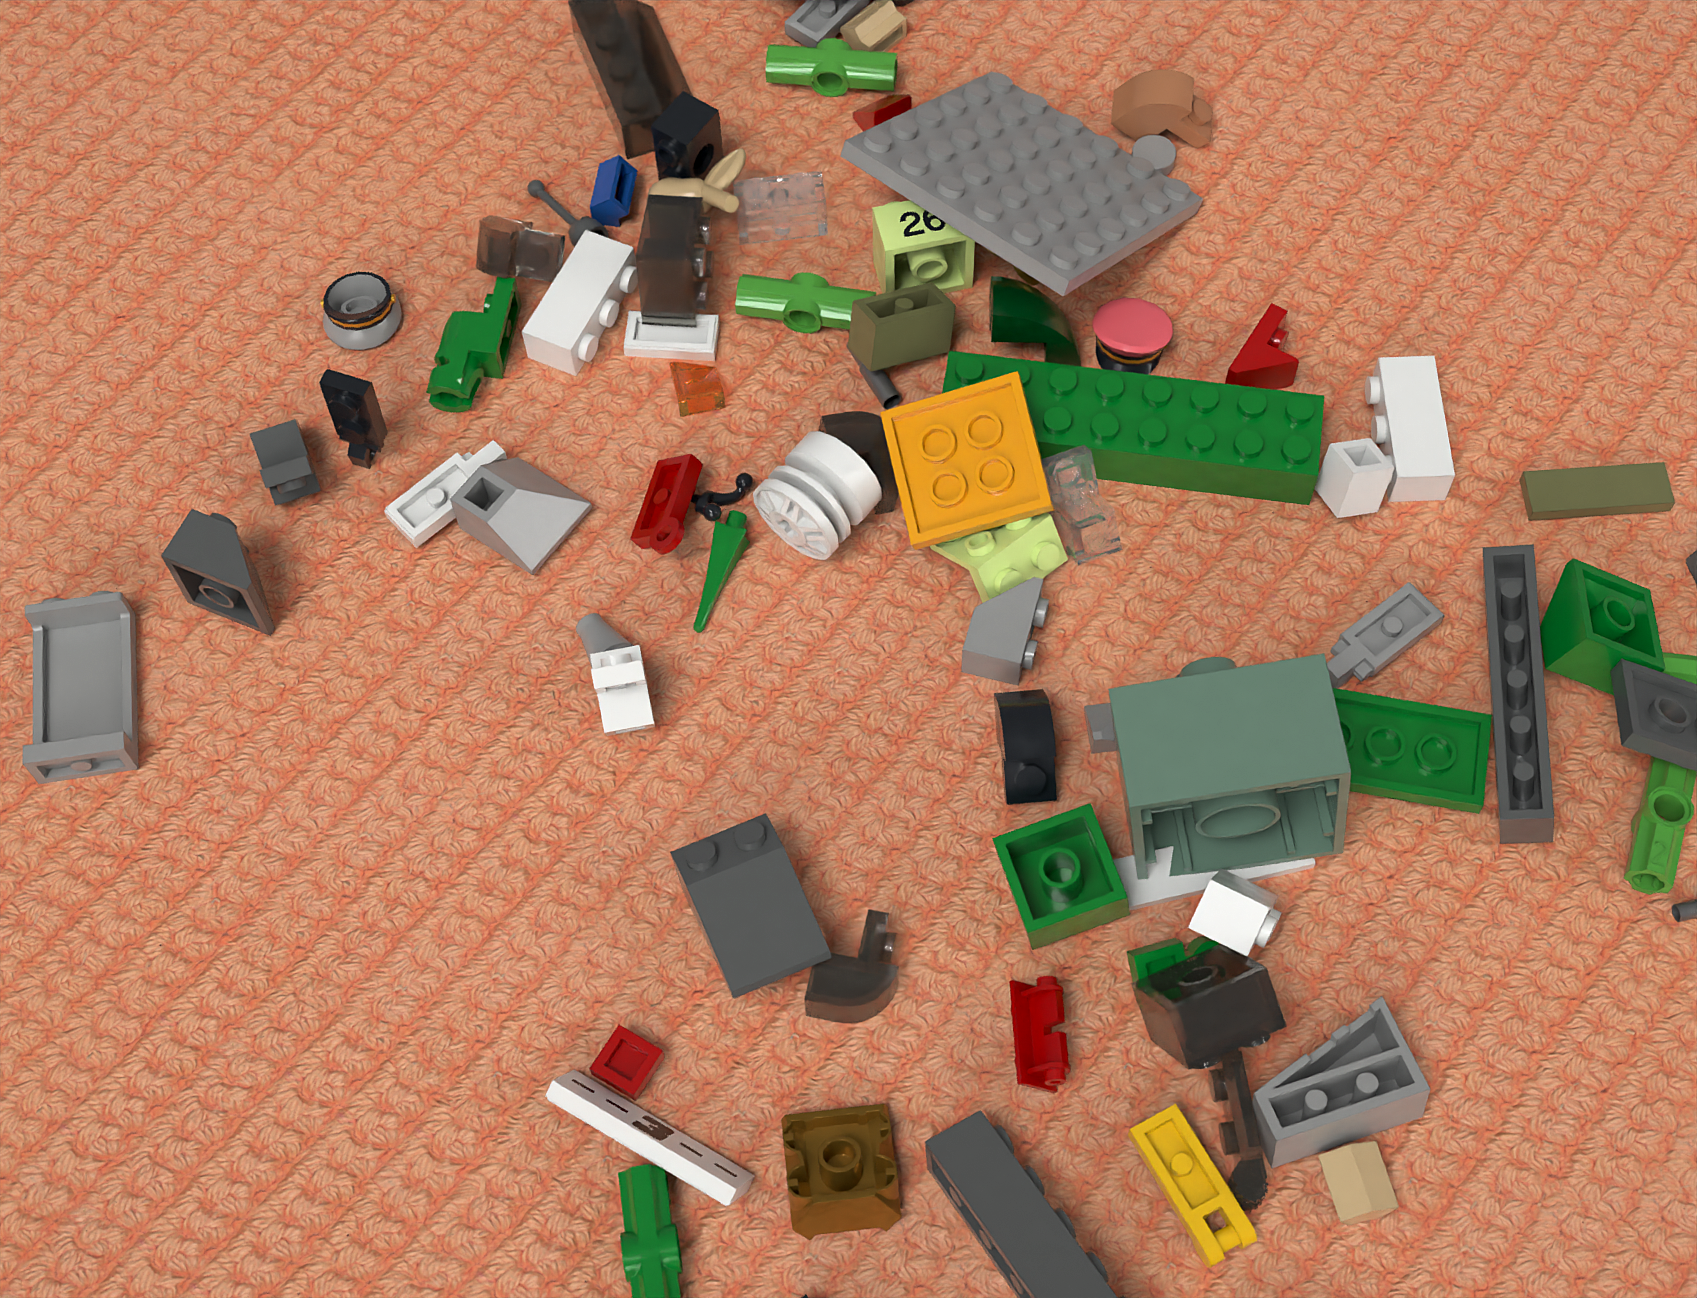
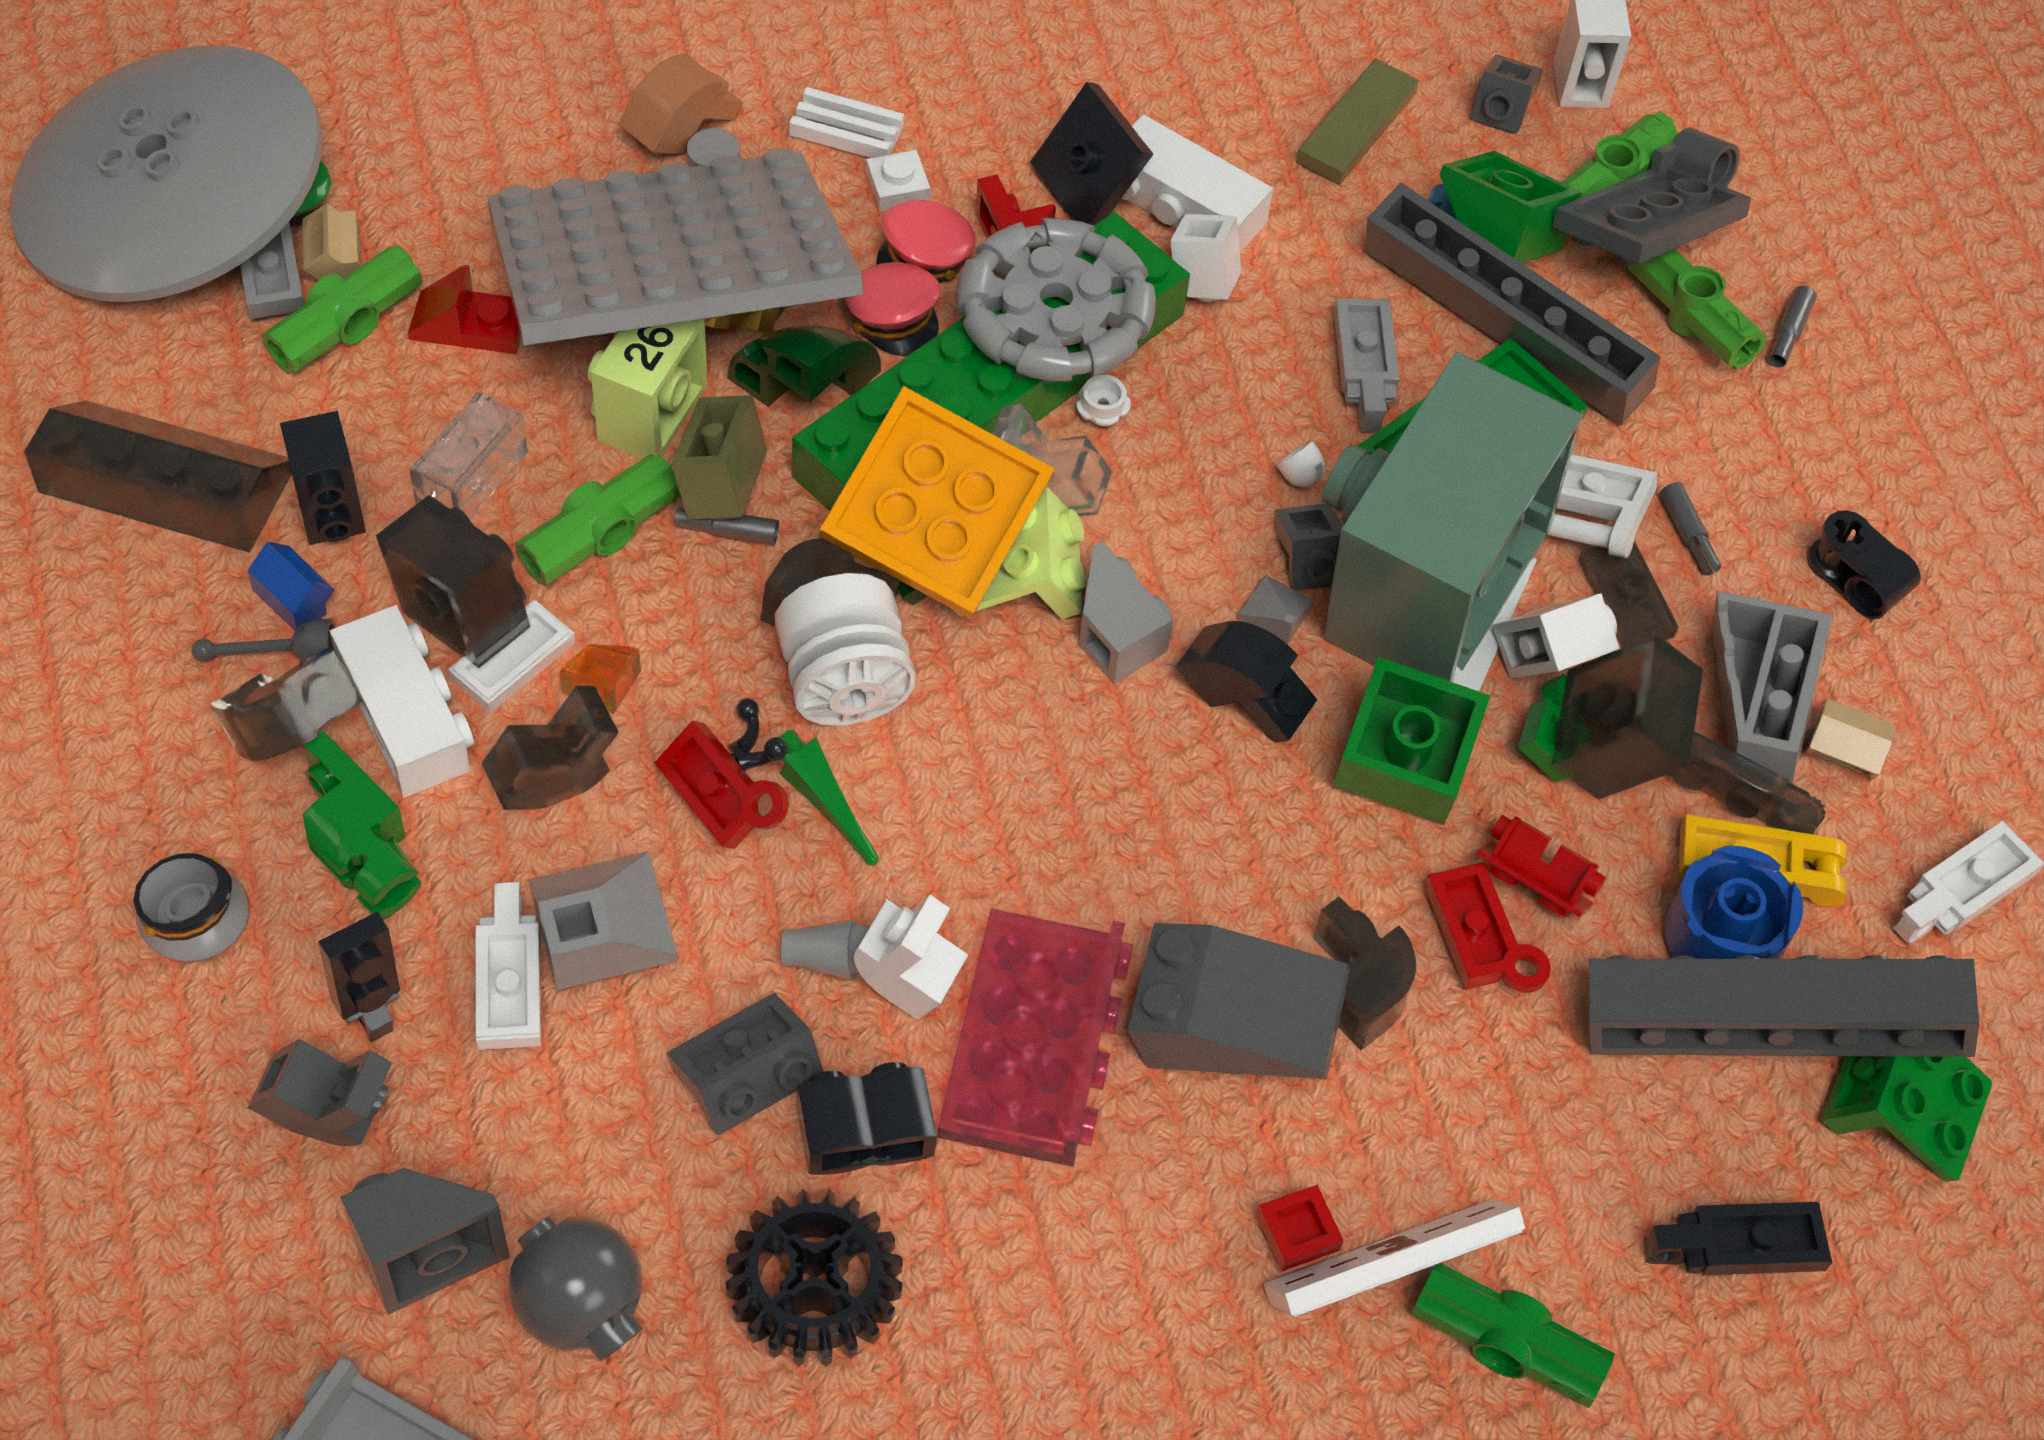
camera: 60 degrees left, 5 degrees down
(260, 678) = (576, 1286): none -> dark grey brick
(351, 780) = (784, 1238): none -> black gear
(487, 661) = (747, 1062): none -> dark grey bracket
(500, 752) = (866, 1119): none -> black brick
(605, 405) = (555, 760): none -> clear smoke brick
(639, 806) = (1035, 1037): none -> clear pink bracket
(711, 188) = (395, 477): tan piece -> none
(841, 1170) = (1545, 1118): pearl gold slope -> none
(956, 1027) = (1480, 931): none -> red hinge
(1120, 1162) = (1733, 907): none -> blue brick
(1181, 496) = (1103, 390): none -> white plate
(1203, 314) = (927, 237): none -> coral piece
(1204, 386) = (1055, 271): none -> light grey plate
(1241, 266) = (897, 179): none -> white plate
(1246, 655) = (1303, 466): none -> white hinge
(1271, 201) = (849, 118): none -> white tile
(1346, 944) = (1629, 593): none -> clear smoke plate
(1364, 352) = (1091, 156): none -> black plate
(1408, 858) = (1607, 493): none -> white plate
(1451, 949) = (1689, 525): none -> dark grey pin
(1531, 1102) = (1864, 570): none -> black piece

